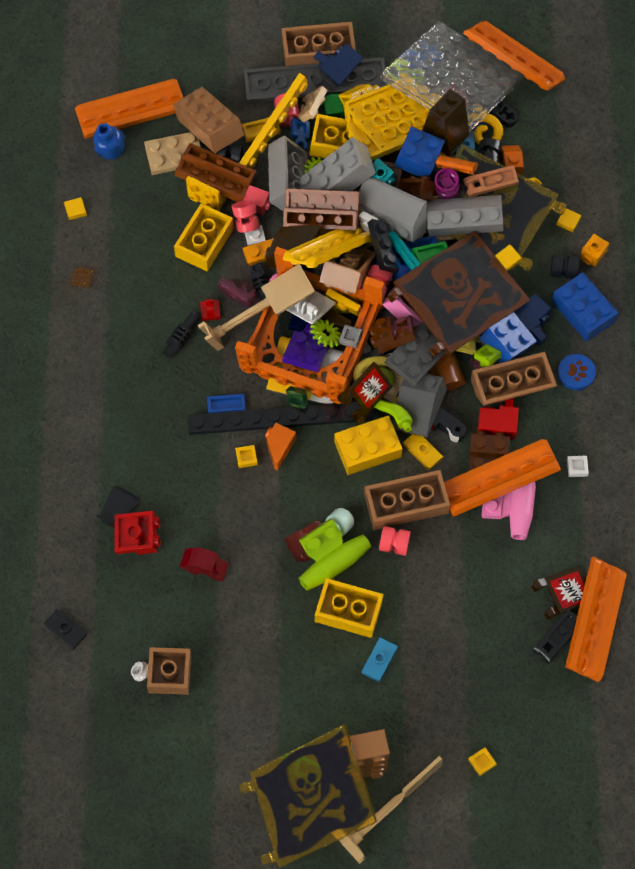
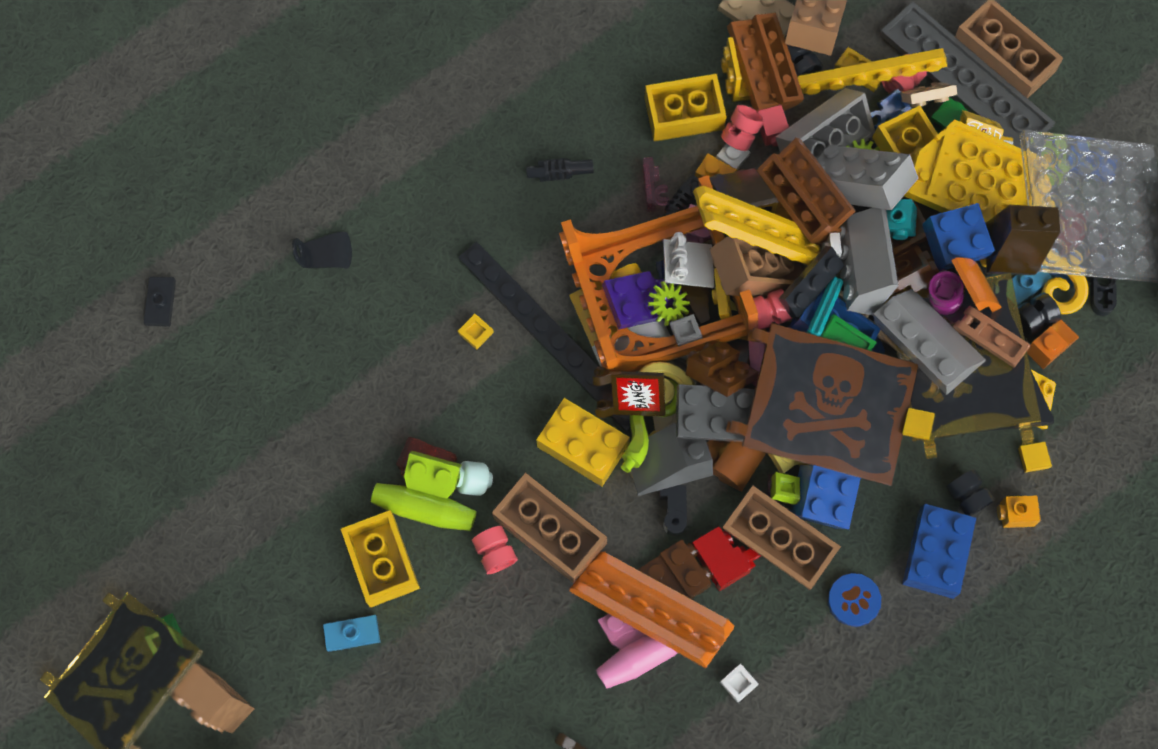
camera: 55 degrees right, 5 degrees up
(82, 277) = (548, 33): clear orange tile -> none
(137, 533) = (307, 290): red plate -> none
(139, 671) = (164, 404): white plate -> none
(169, 671) = (179, 431): medium nougat brick -> none
(204, 561) = (323, 379): dark red brick -> none
(210, 310) = (612, 176): red tile -> none
(226, 403) = (520, 269): blue tile -> none
(279, 443) = (513, 353): orange slope -> none
(280, 295) = (670, 226): tan piece -> none
(297, 397) = (578, 331): clear green tile -> none
(338, 67) = (999, 86): dark blue hinge -> none
(422, 451) = (624, 505): yellow plate -> none
(534, 314) = (877, 501): dark blue hinge -> none

